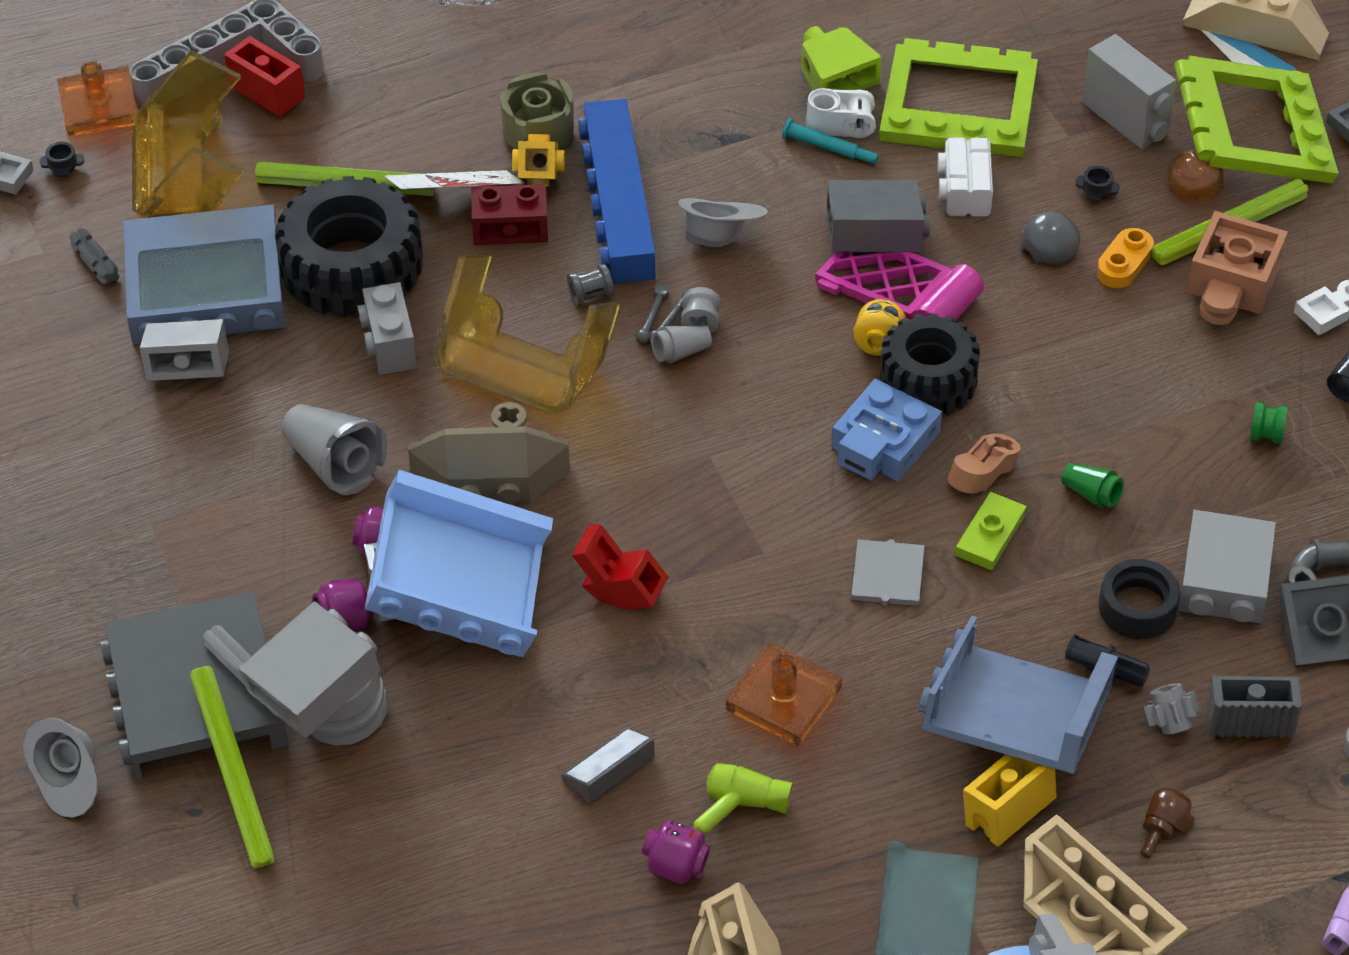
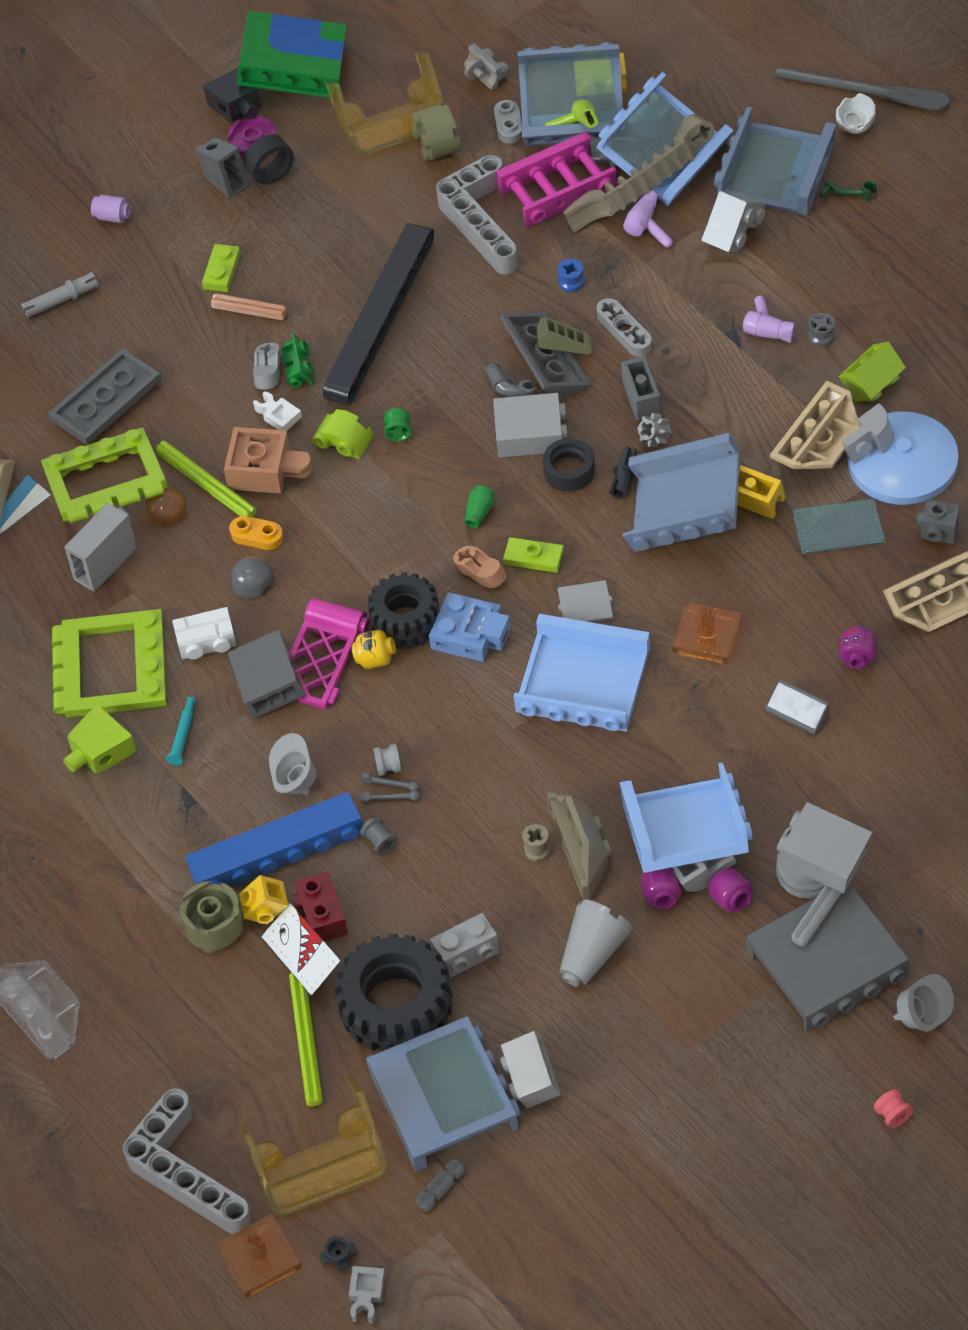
camera: 100 degrees left, 5 degrees up
(232, 767) = (893, 898): lime axle -> none
(266, 76) = (214, 1122): red brick -> none
(478, 353) = (472, 853): clear yellow windscreen -> none
(618, 577) = (648, 737): red brick -> none
(679, 342) = (422, 767): light grey cone -> none
(741, 787) = (794, 633): lime piece -> none
(757, 537) = (583, 673): none -> light blue panel
(837, 112) = (154, 728): white piece -> none
(1097, 183) = (182, 556): black plate -> none
(1166, 814) = (730, 422): reddish brown piece -> none
(1267, 367) = (344, 433): none -> lime cylinder

